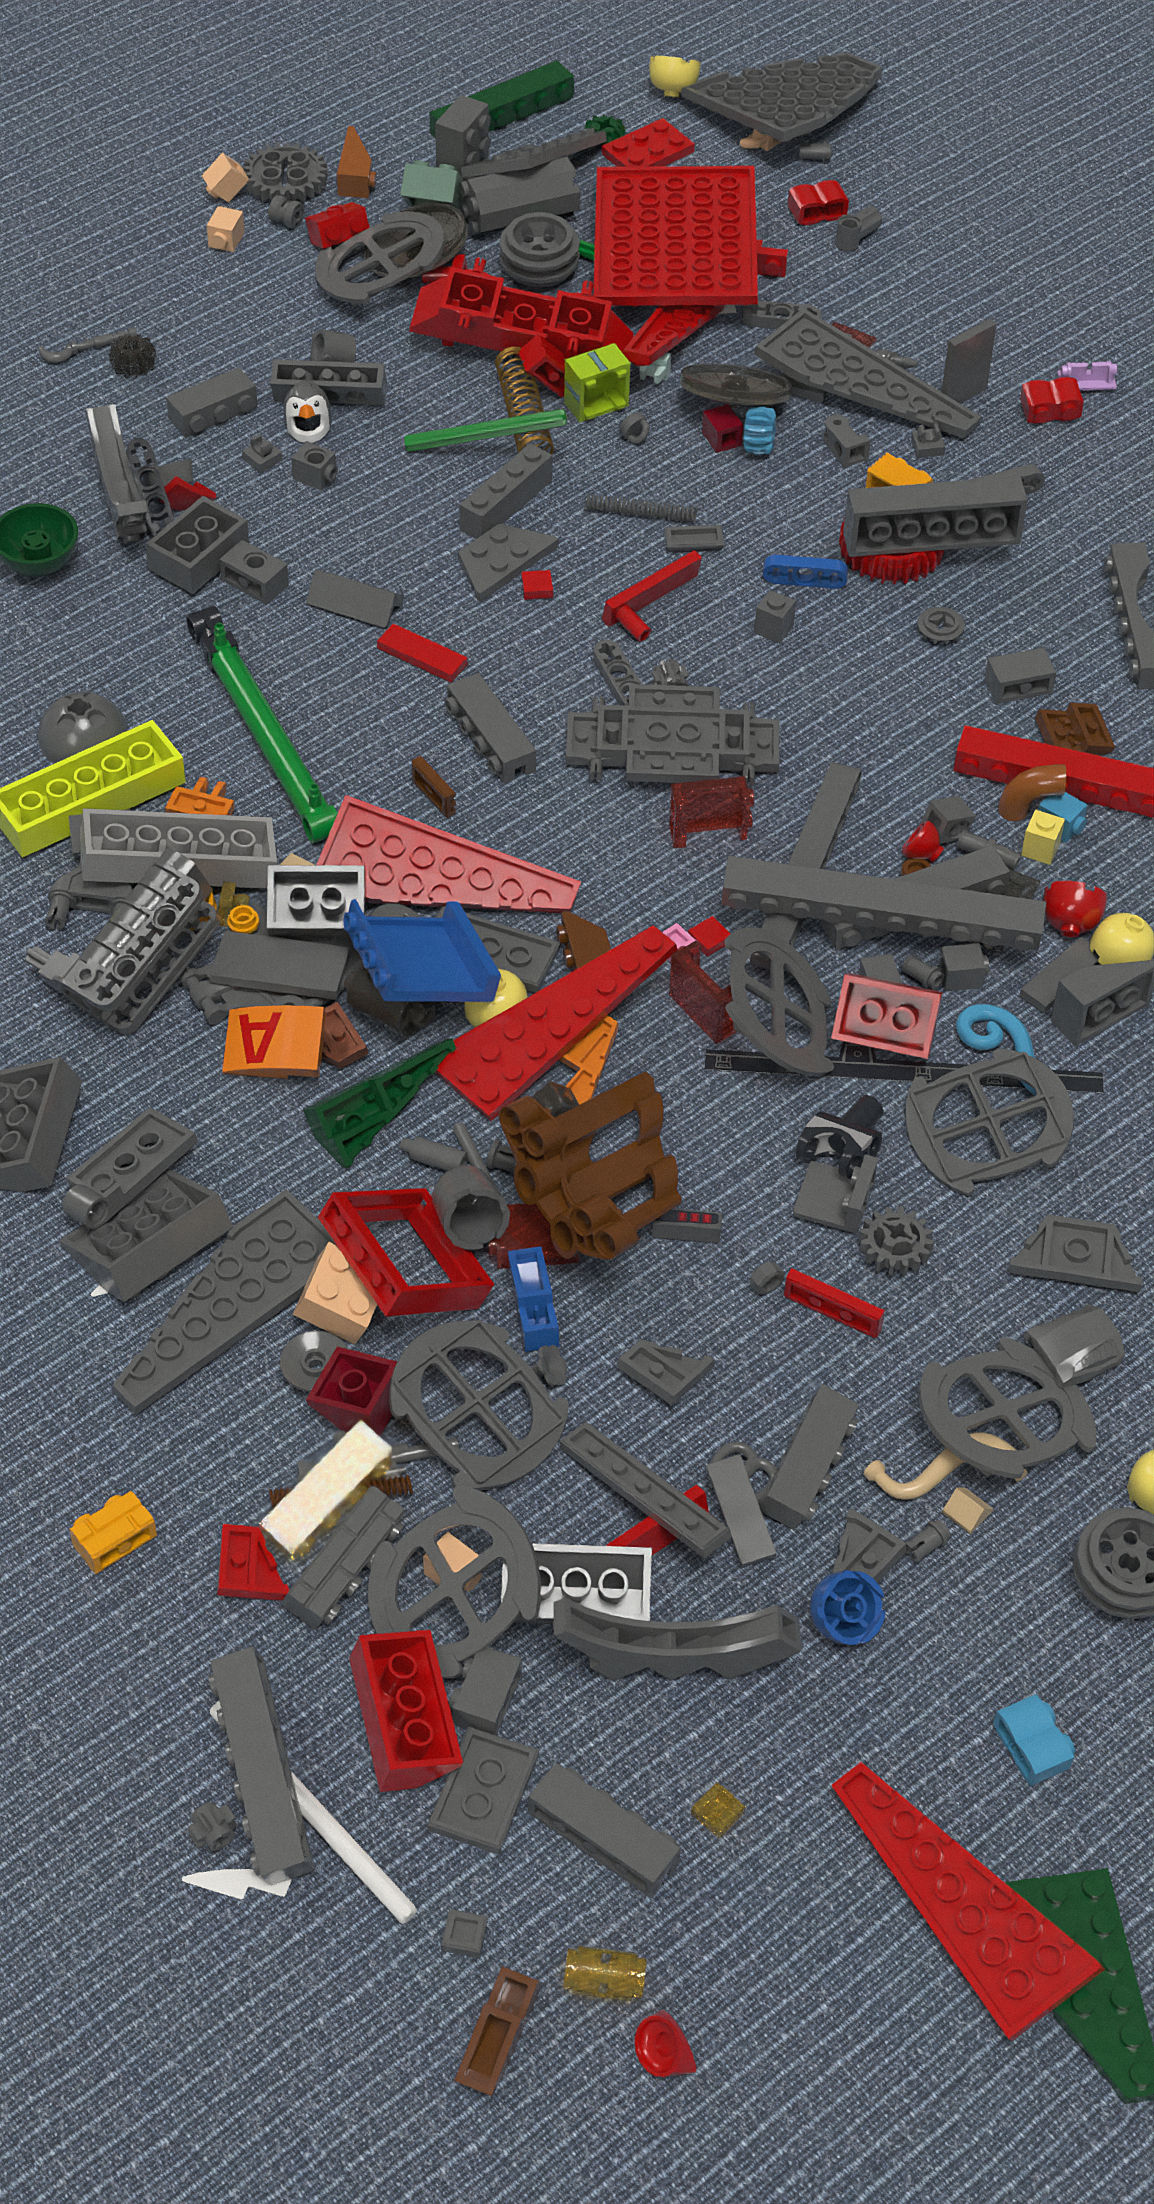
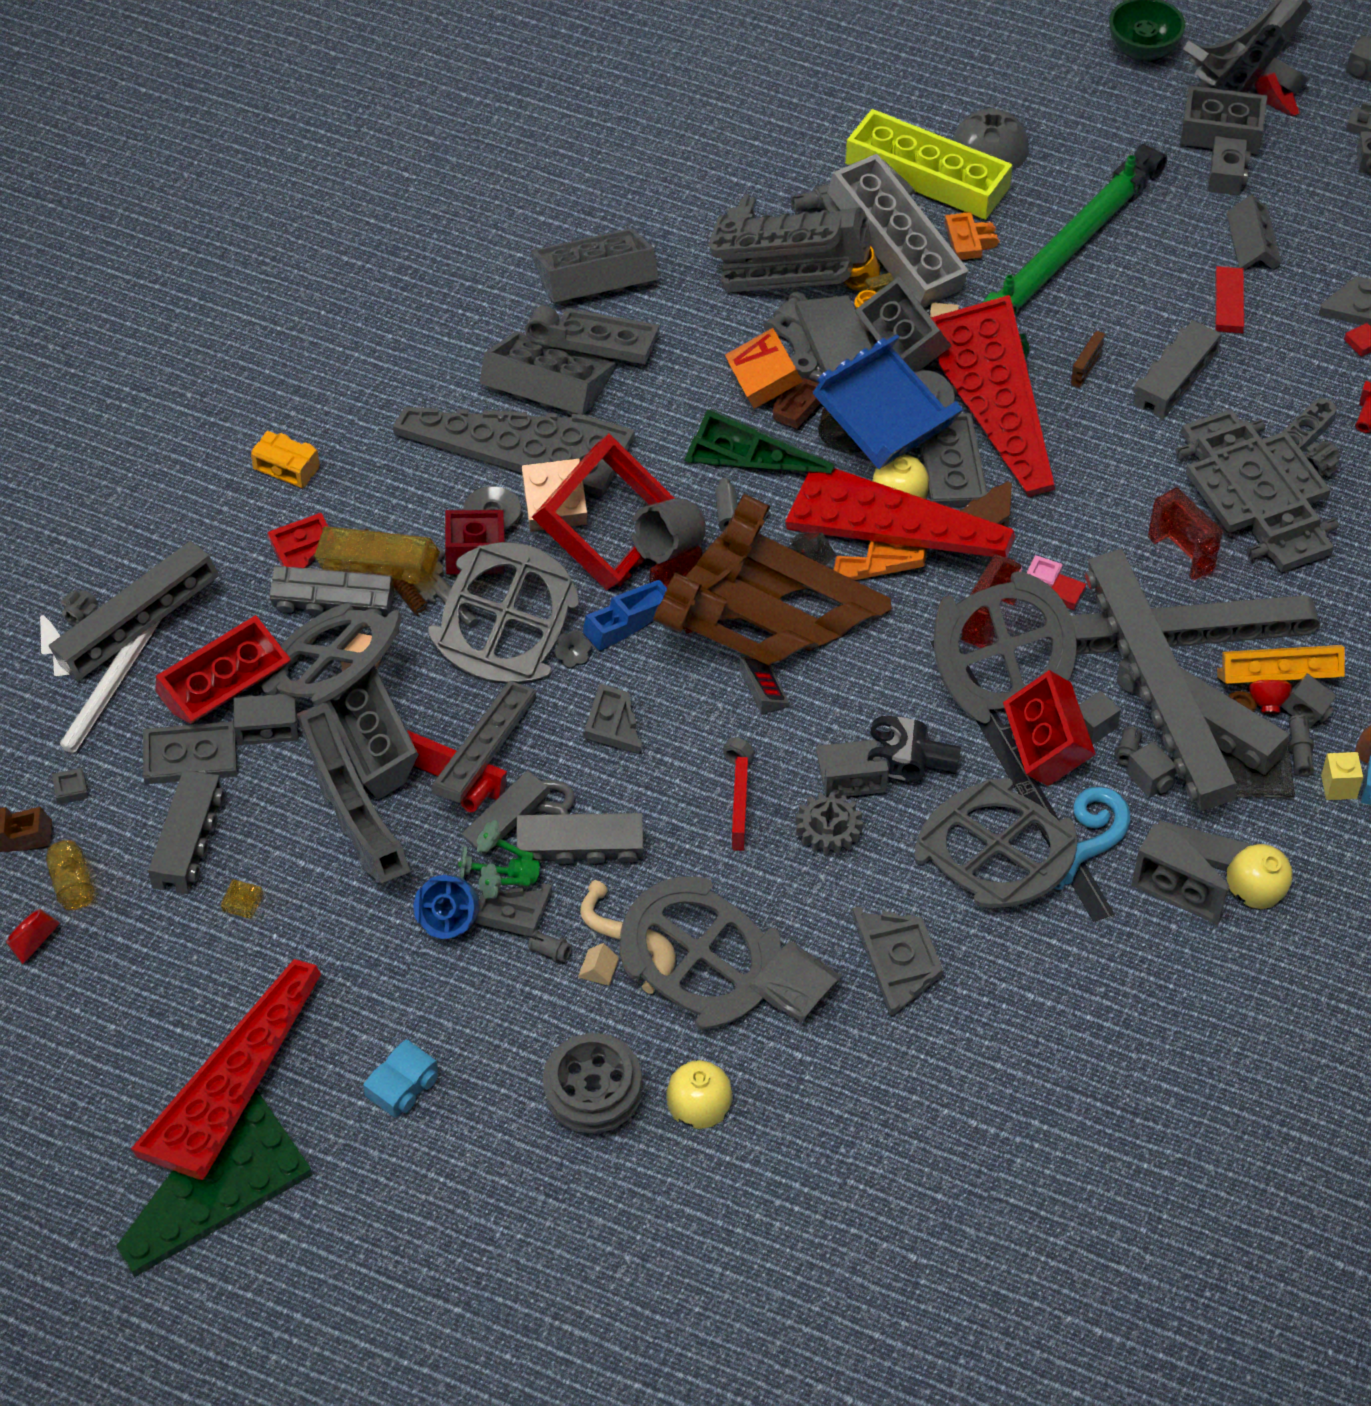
camera: 65 degrees right, 0 degrees up
(805, 1528) = (522, 870): none -> plant
(901, 819) = (1282, 664): none -> light orange fence
(1073, 907) = (1269, 823): red cylinder -> none

